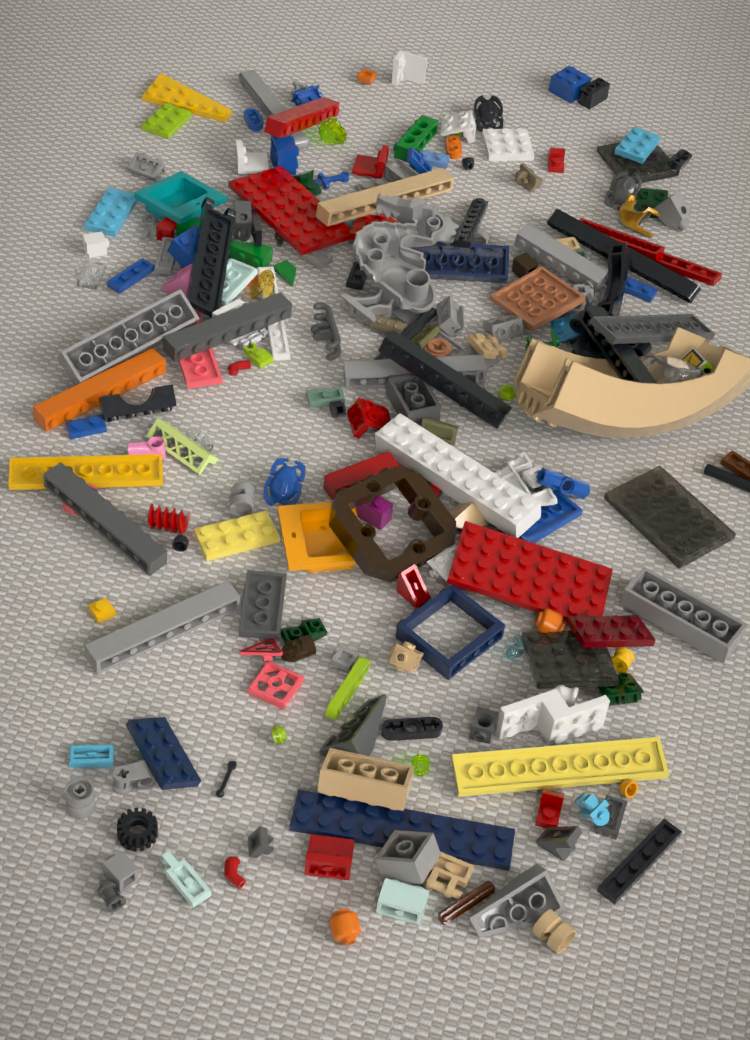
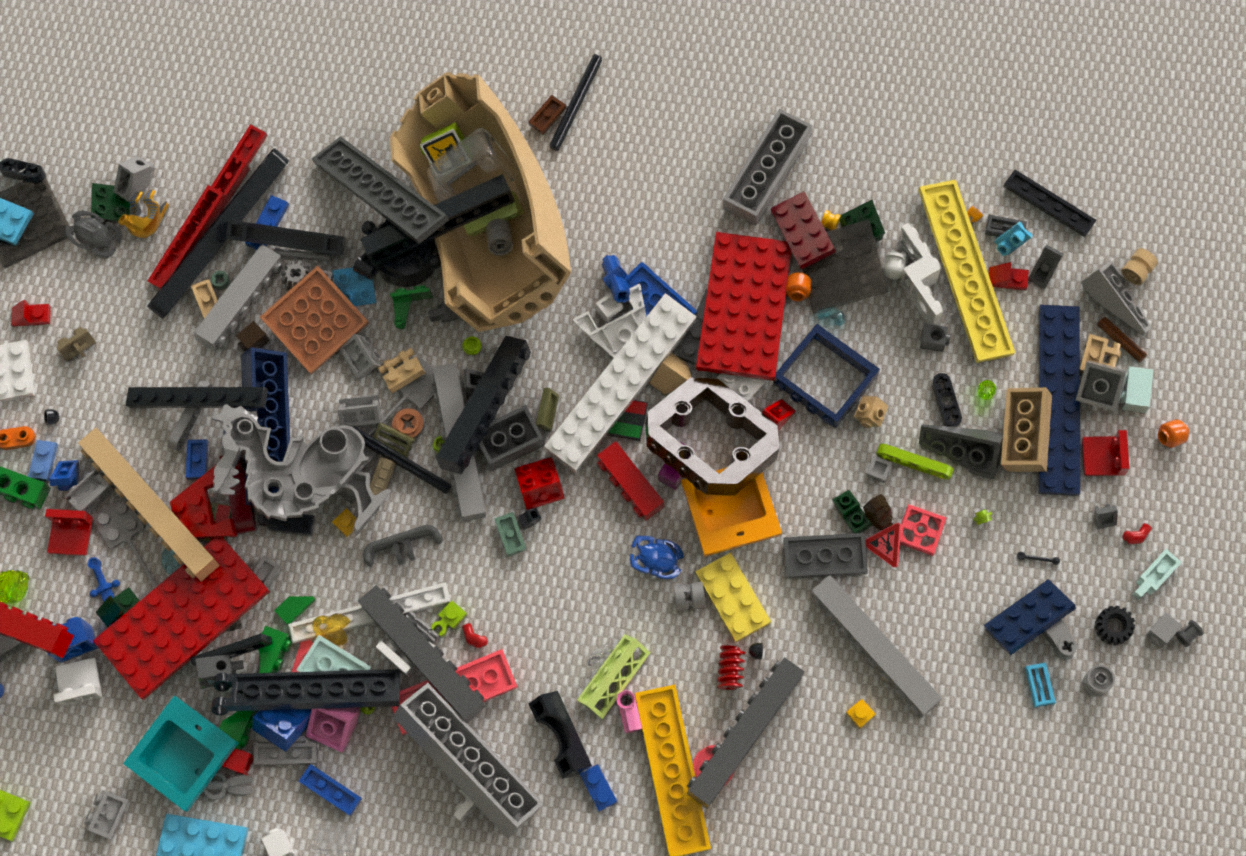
camera: 85 degrees left, 25 degrees up
(85, 395) = (546, 787): orange brick -> none
(669, 516) = (630, 182): clear smoke plate -> none

